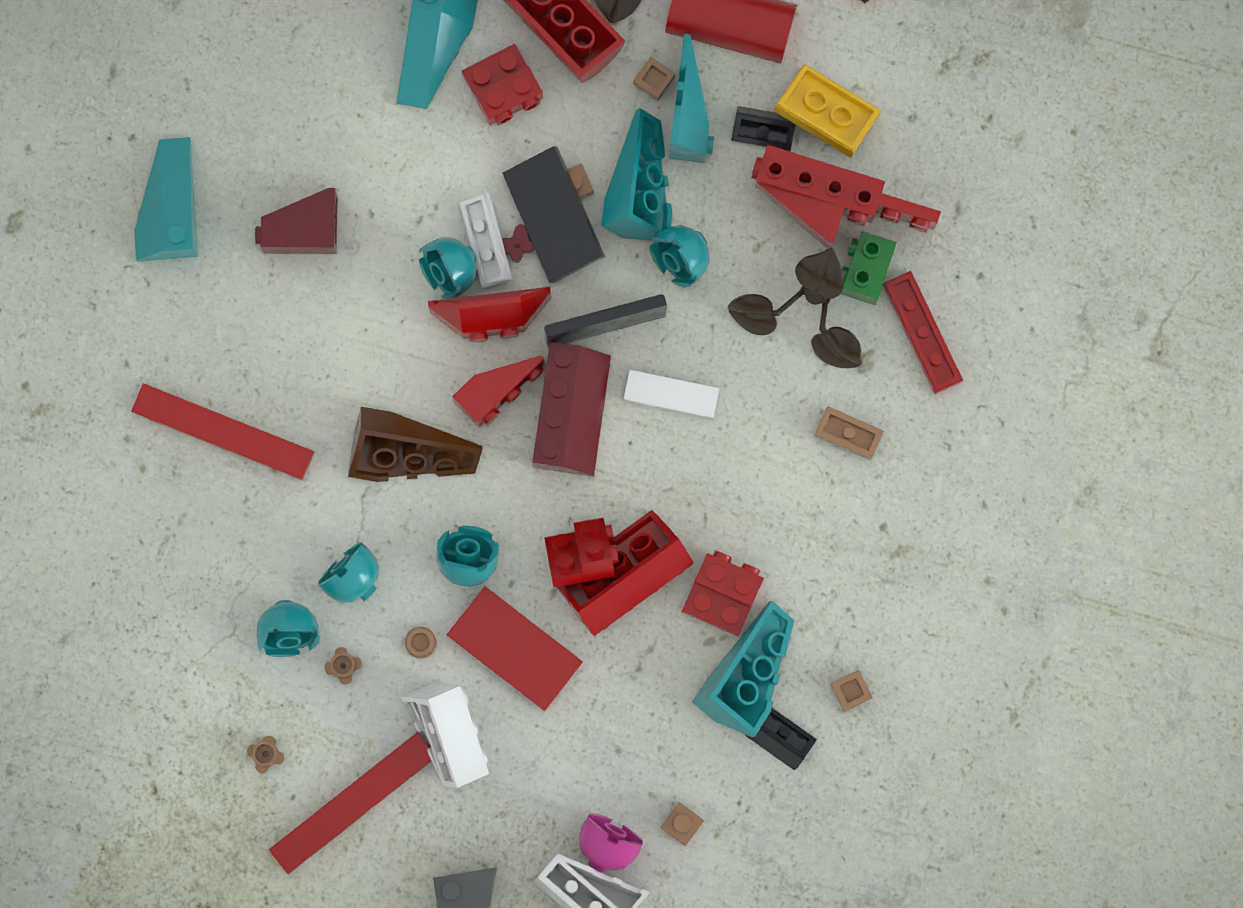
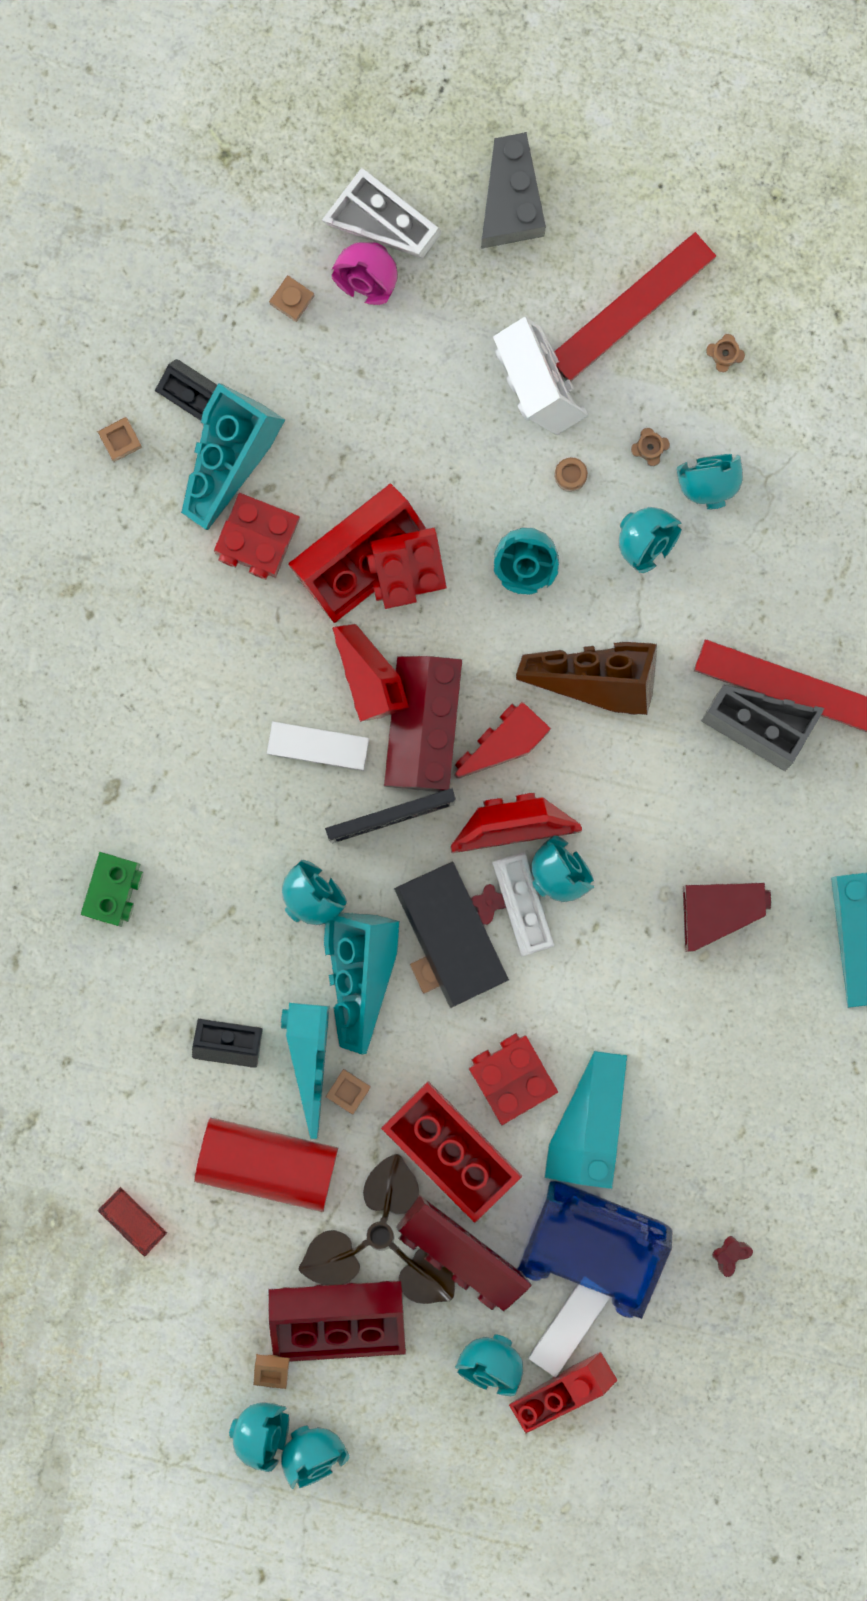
camera: 175 degrees right, 5 degrees up
(250, 393) = (762, 723): none -> dark grey wedge
(514, 648) = (472, 471): red tile -> none
(618, 451) = (372, 680): none -> red slope
(820, 281) = (163, 864): dark brown plant -> none
(821, 209) = (160, 946): red wedge -> none
(827, 110) = (158, 1062): yellow tile -> none
(849, 433) = (127, 710): medium nougat plate -> none
(922, 332) = (51, 824): red tile -> none

